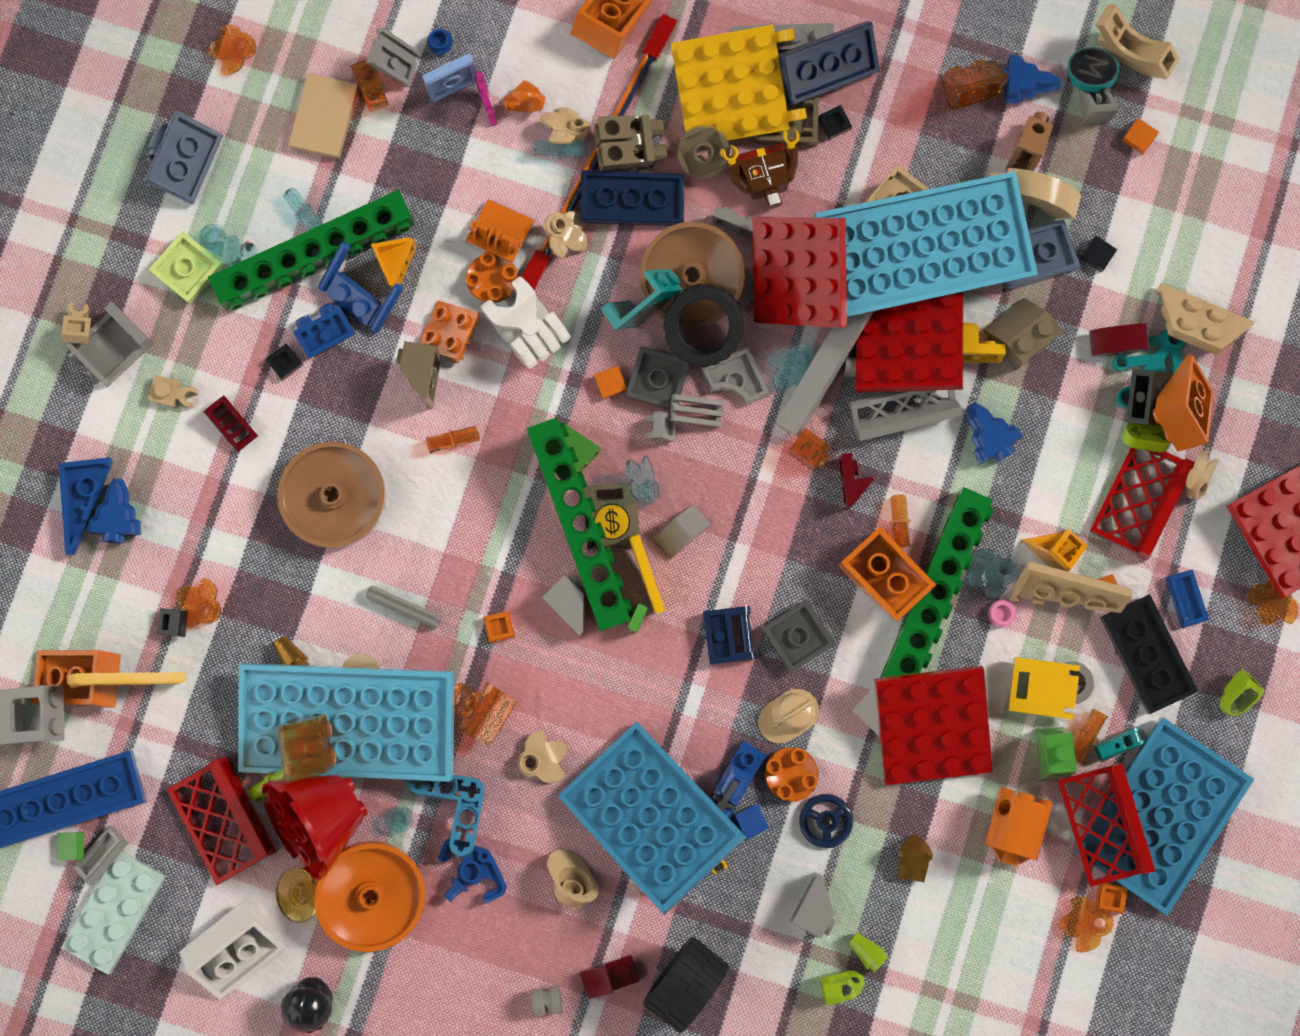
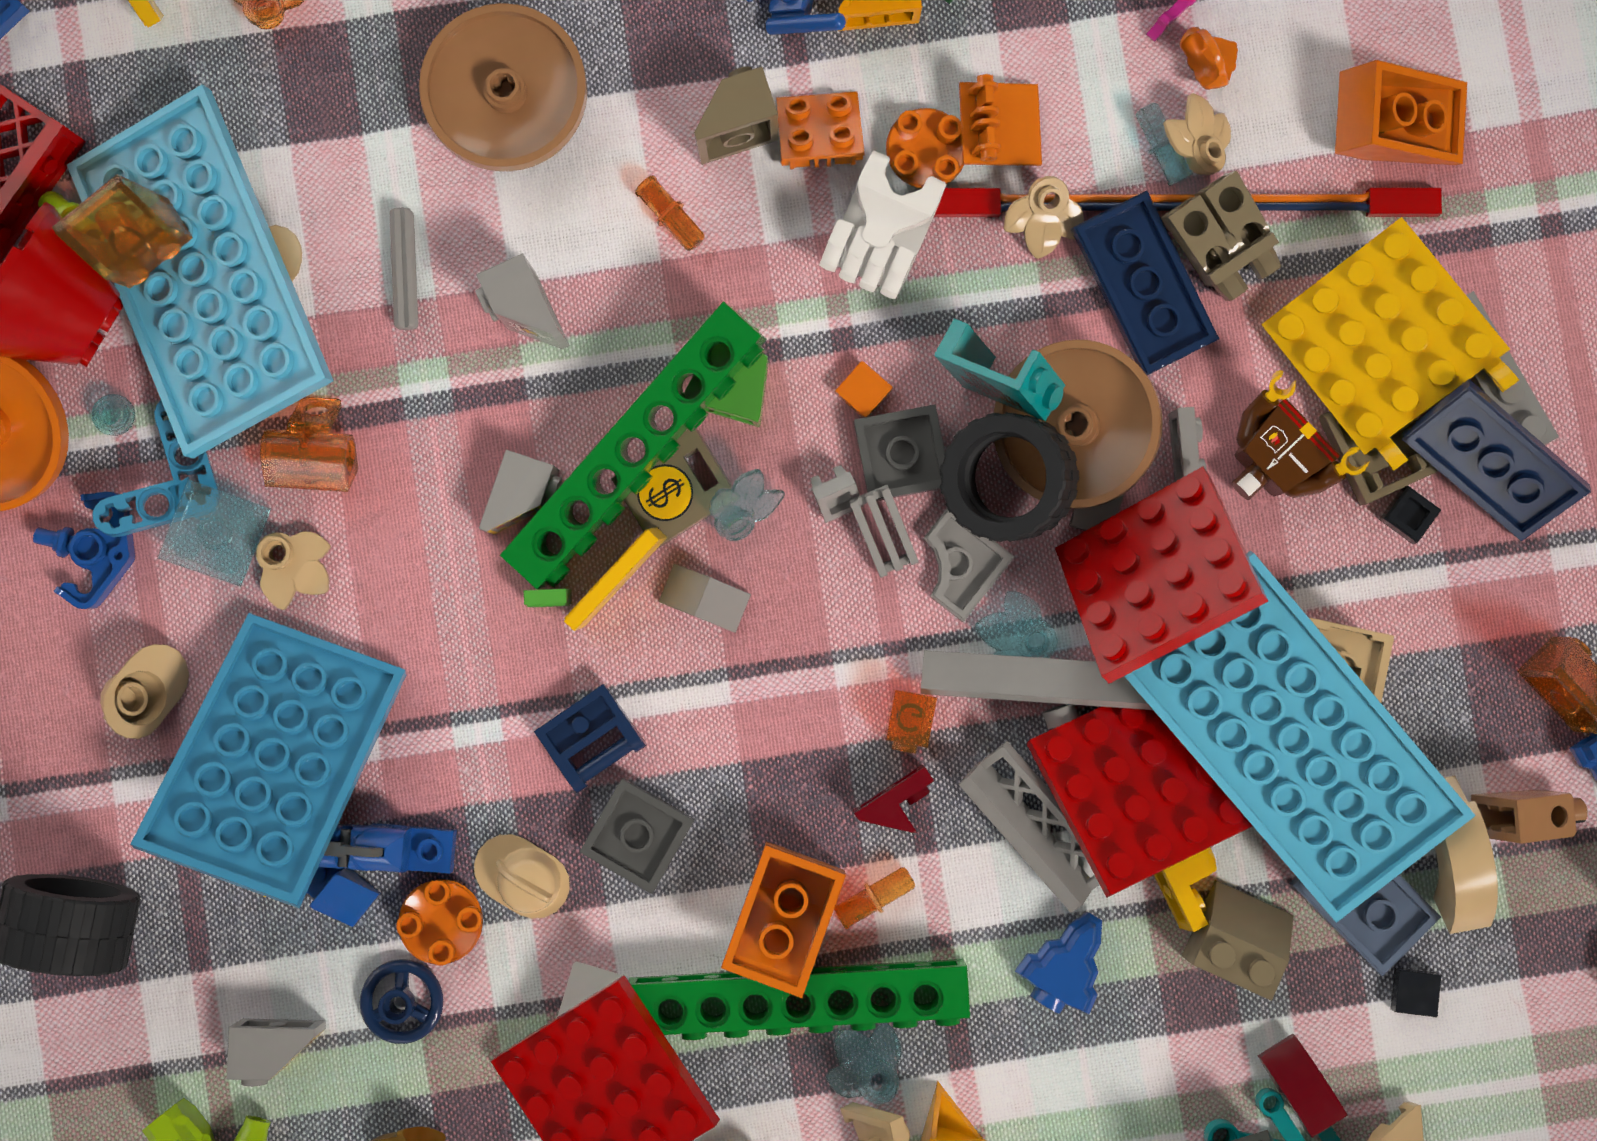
camera: 65 degrees right, 5 degrees up
(289, 653) = (260, 150): pearl gold cone -> none
(463, 545) = (518, 300): none -> light grey slope
(499, 627) = (443, 414): orange tile -> none
(500, 791) = (214, 533): none -> clear light blue plate
(609, 976) = (43, 810): dark red slope -> none
(697, 165) = (1265, 323): dark tan plate -> none
(1001, 613) = (817, 1106): bright pink tile -> none

